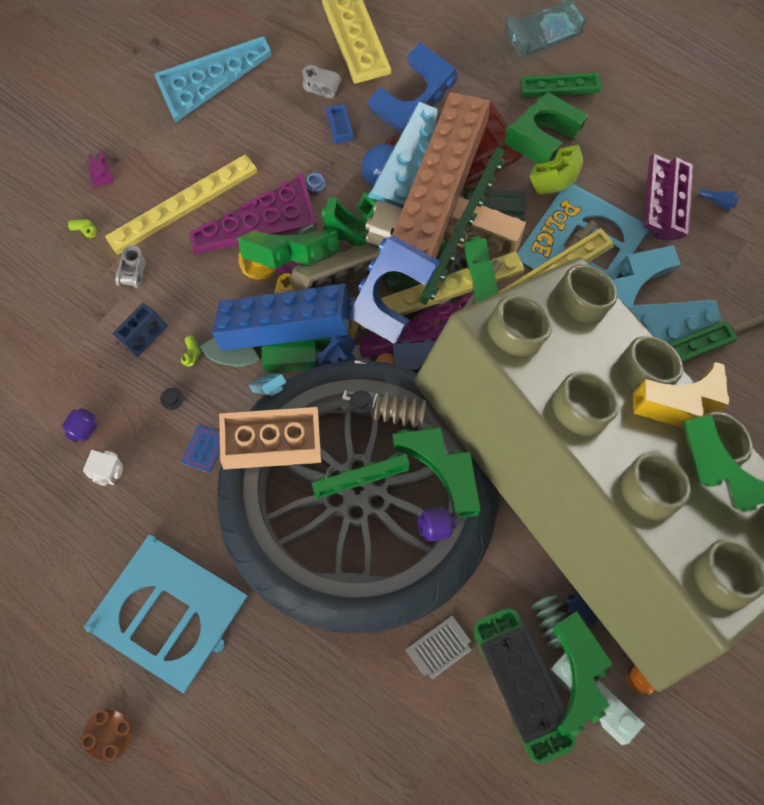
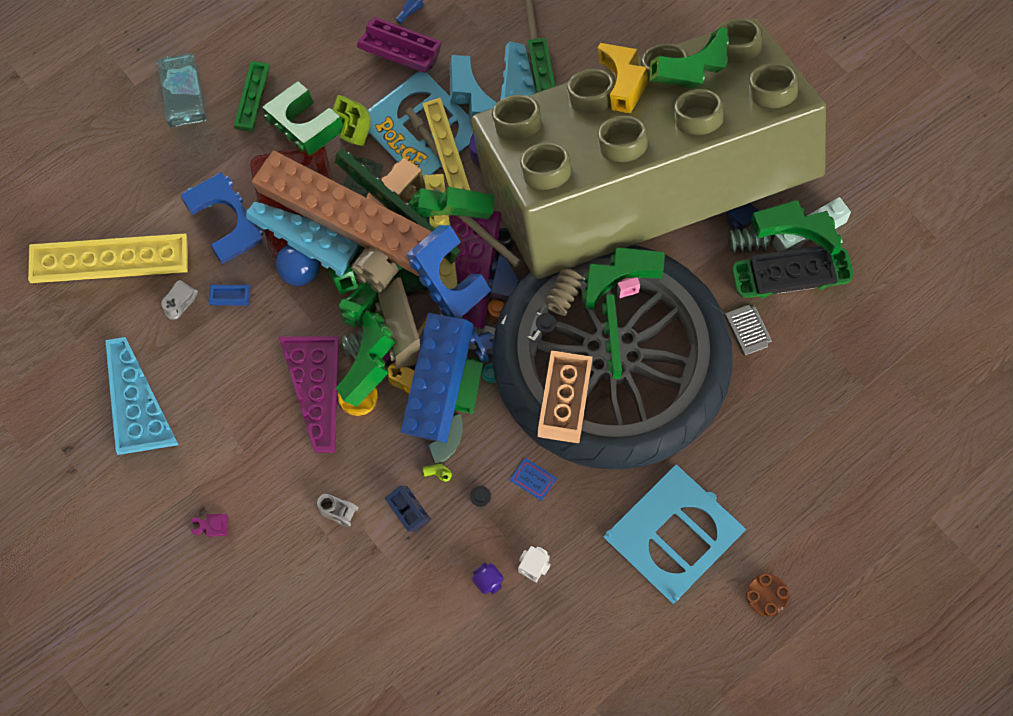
camera: 75 degrees left, 0 degrees up
(84, 225) = (273, 548): lime arm -> none
(181, 204) = (276, 455): light yellow plate -> none
(268, 384) = (501, 401): medium azure plate -> none
(315, 182) = (290, 329): medium blue plate -> none
(428, 479) = (628, 287): none -> bright pink plate
(436, 523) = (666, 289): dark purple head -> none
(638, 682) = (804, 193): orange plate -> none

